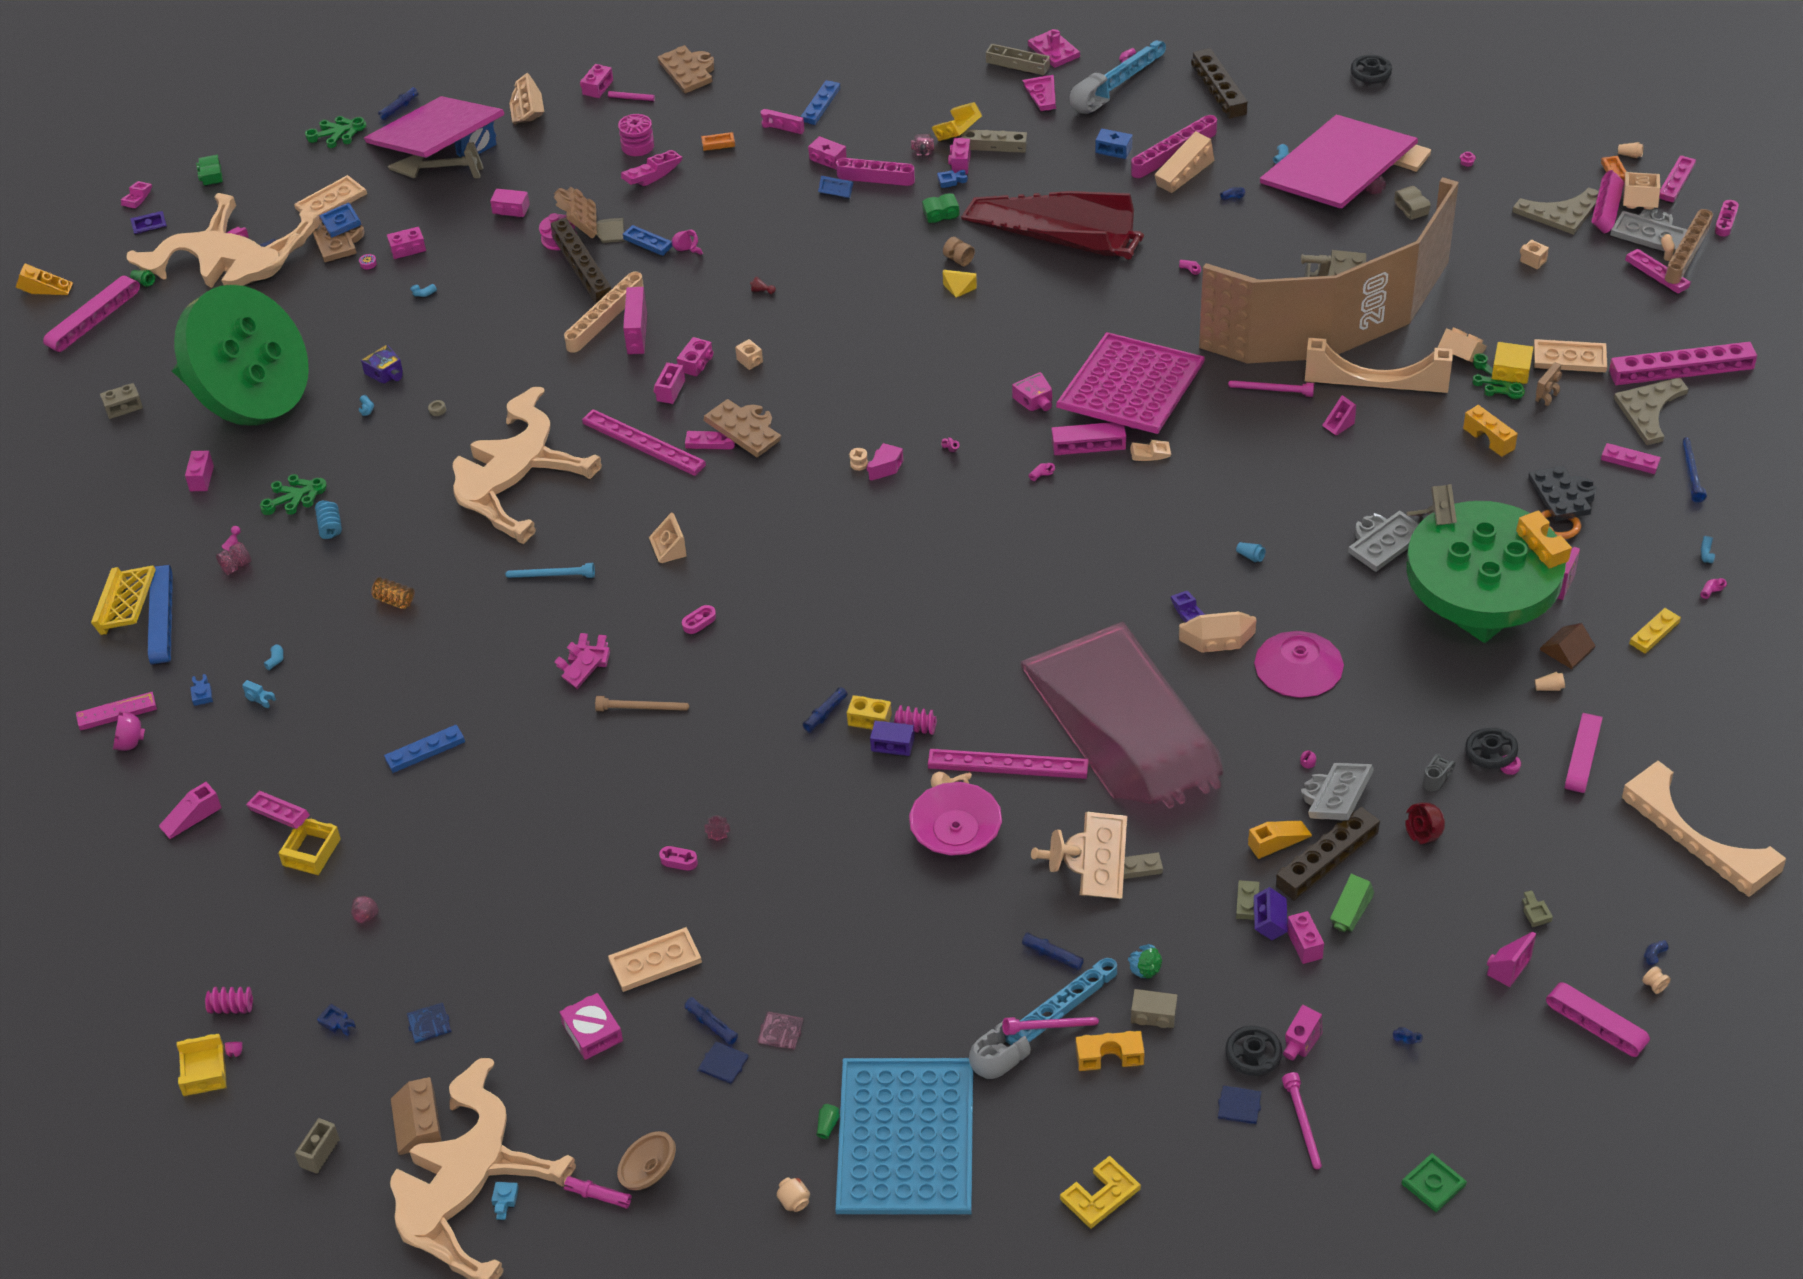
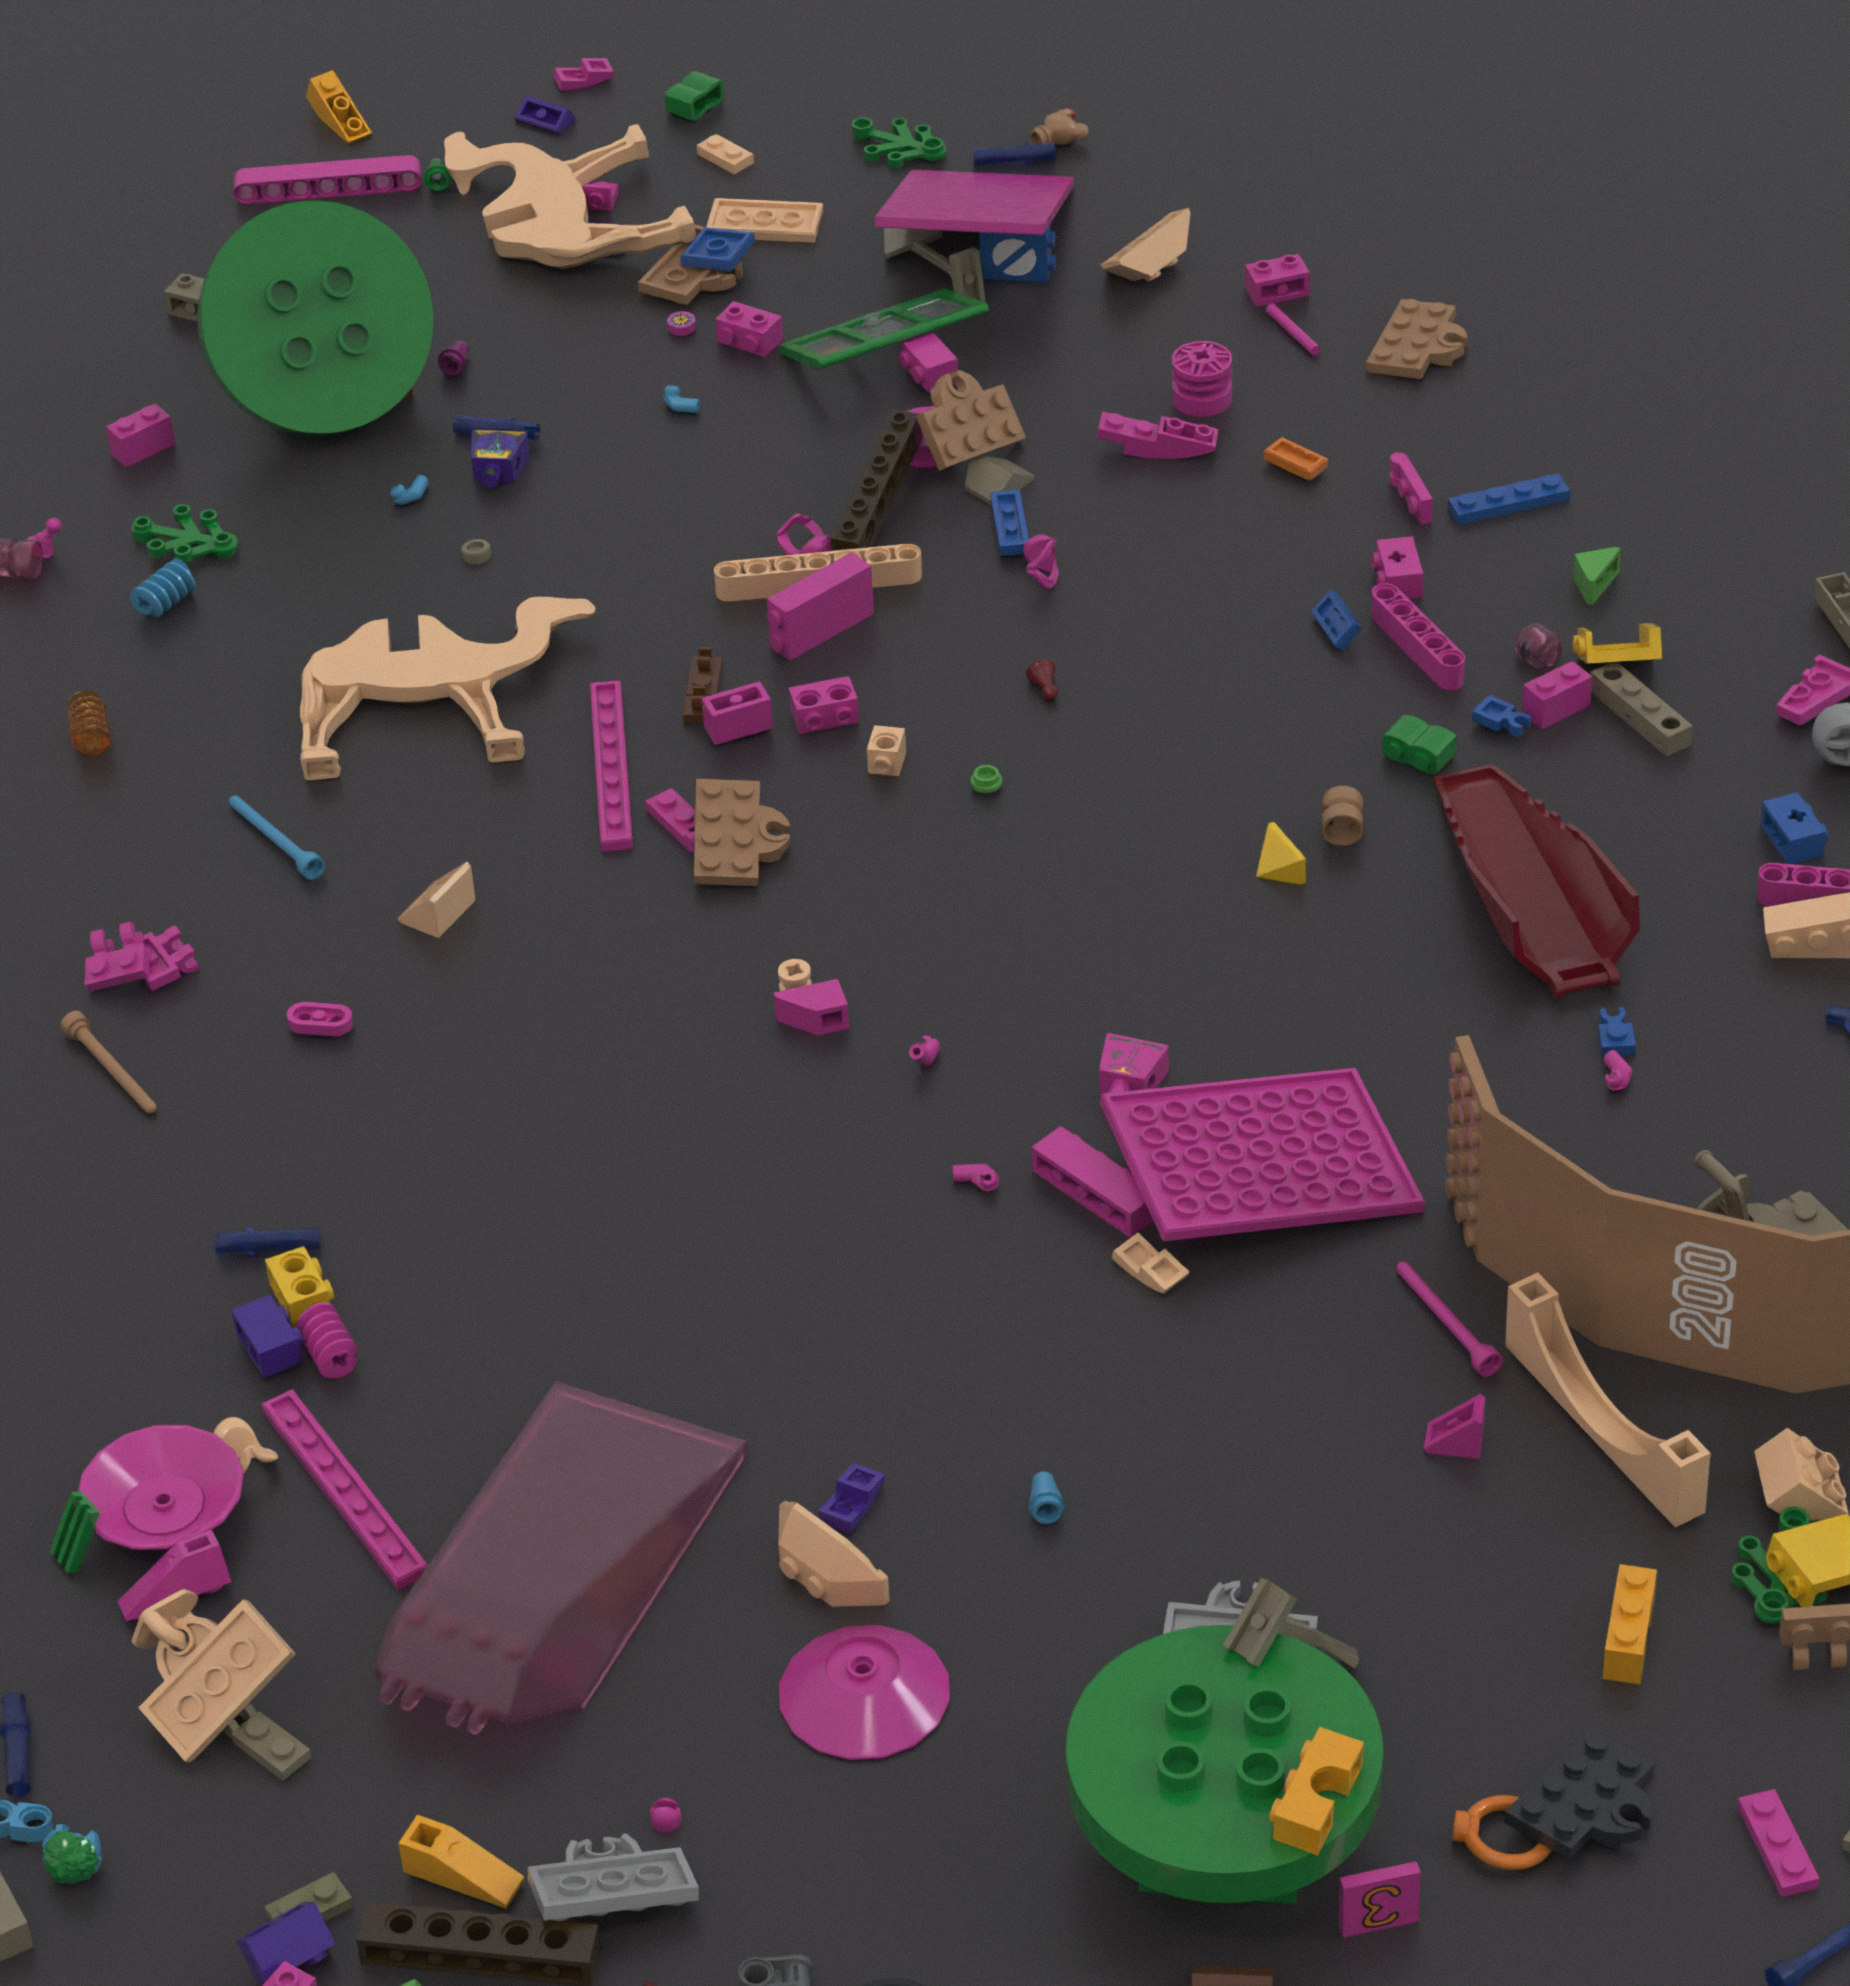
camera: 50 degrees right, 5 degrees down
(264, 184) = (725, 154): none -> light nougat plate
(359, 355) = (467, 424): none -> clear blue pin
(402, 81) = (1059, 128): none -> medium nougat animal
(469, 203) = (882, 328): none -> green door
(586, 304) = (819, 543): none -> dark pink piece
(630, 387) = (702, 682): none -> reddish brown plate
(803, 336) = (986, 779): none -> bright green plate
(899, 106) = (1595, 571): none -> bright green slope
(950, 878) = (74, 1531): none -> green tile
(1011, 843) = (188, 1565): none -> dark pink slope
(1169, 256) = (1616, 1034): none -> blue plate

